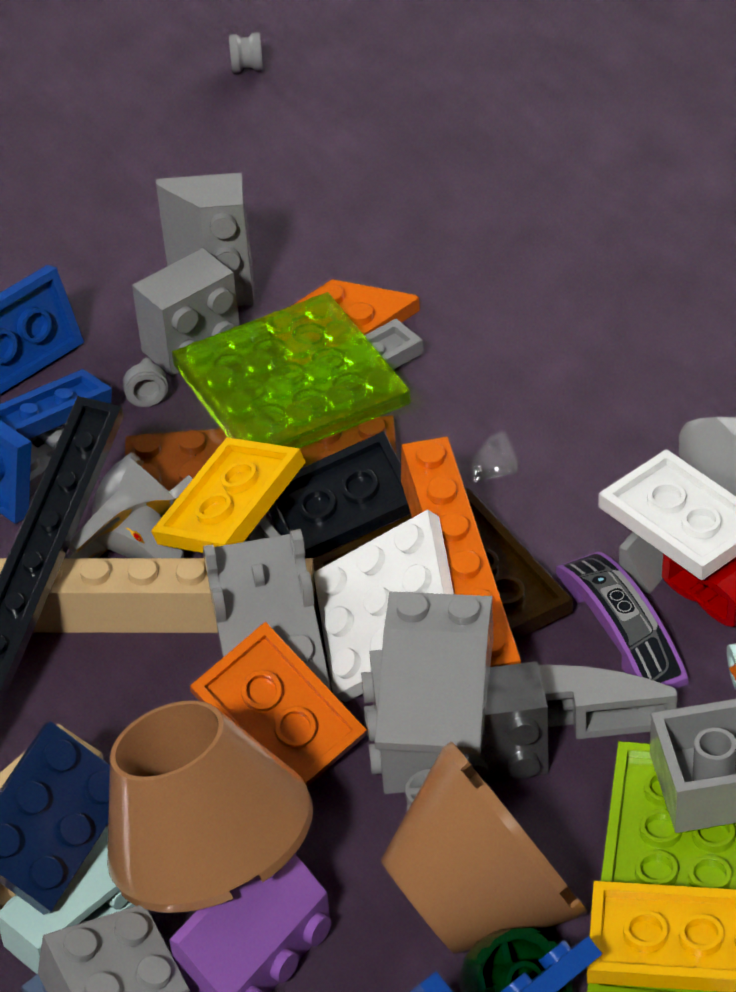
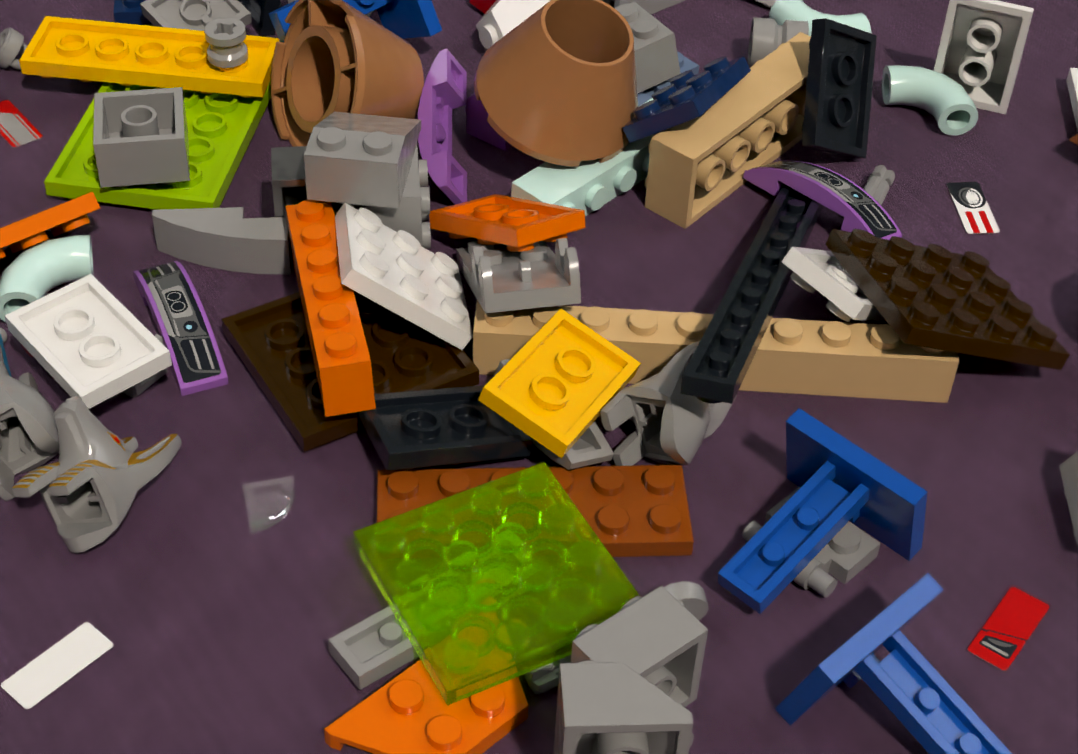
camera: 175 degrees right, 0 degrees up
(358, 812) = (443, 91): none -> medium lavender slope
(632, 342) = (56, 665): none -> white sticker
(637, 420) = (93, 477): none -> light grey piece
(658, 922) = (226, 42): none -> light grey wheel

